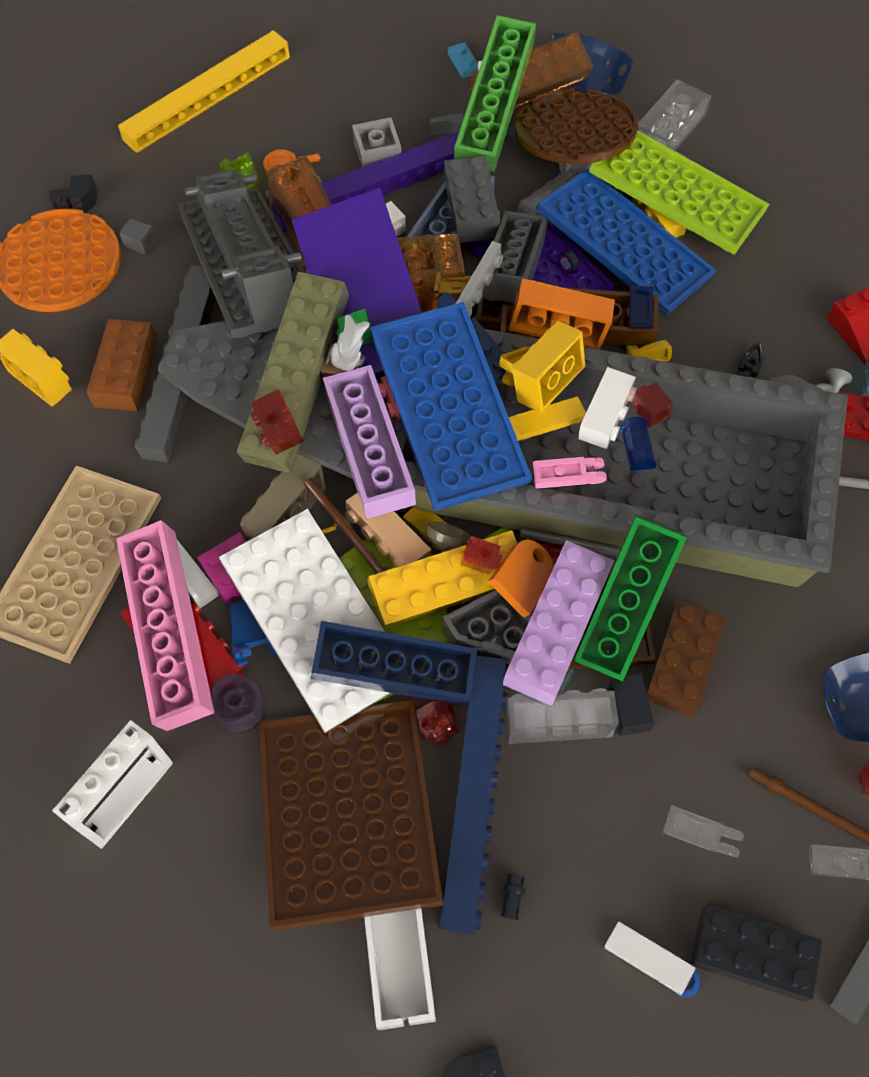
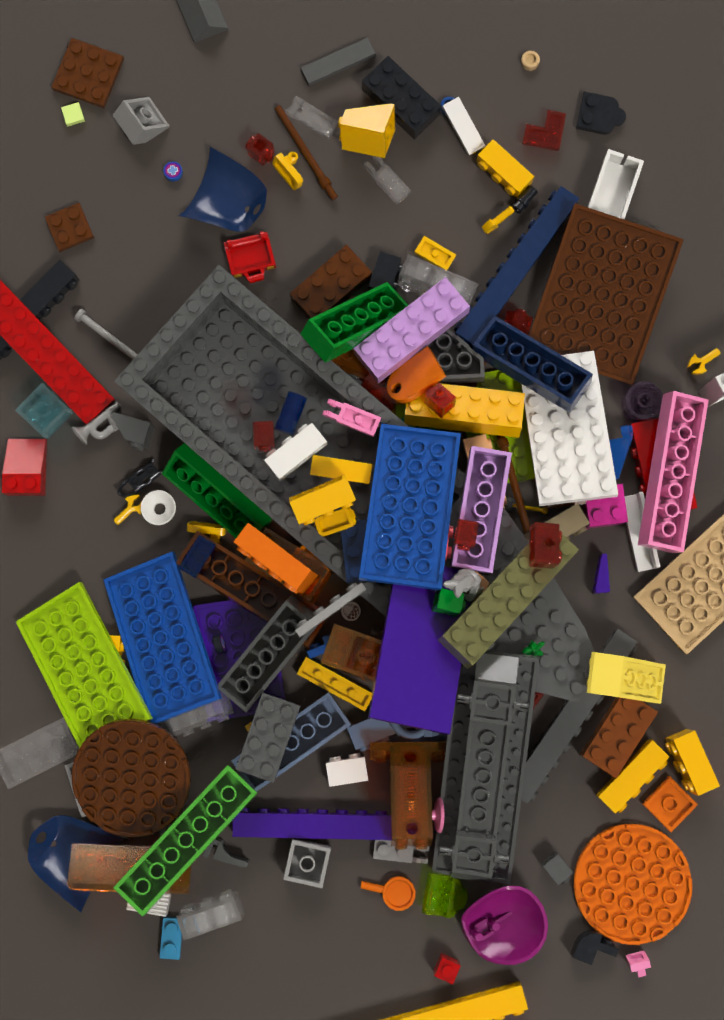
camera: 155 degrees left, 20 degrees up
(27, 201) = (638, 962): none -> bright pink tile
(48, 332) = (669, 804): none -> orange tile
(84, 345) = (634, 774): none -> yellow brick
(138, 359) = (625, 677): none -> light yellow slope
(163, 171) = (506, 925): none -> magenta piece
(181, 800) = (702, 361): none -> yellow bar
(201, 491) = (601, 580): none -> dark purple slope
(207, 128) = (446, 968): none -> red brick
(243, 345) = (534, 649): none -> green plant
(275, 210) = (438, 815): none -> bright pink piece
(372, 392) = (465, 534): none -> clear red brick
(439, 76) = (210, 914): none -> clear brick
(527, 1008) = (547, 136): none -> clear red plate
(532, 846) = (492, 224): none -> yellow bar
(562, 923) = (504, 169): none -> yellow brick
(585, 763) = (435, 253): none -> yellow plate
(711, 343) = (148, 507): none -> white piece
(736, 342) = (129, 509): none -> yellow bar
(768, 874) = (368, 129): none -> yellow slope
(799, 648) = (250, 256): none -> red piece
(840, 778) = (286, 170): none -> yellow piece

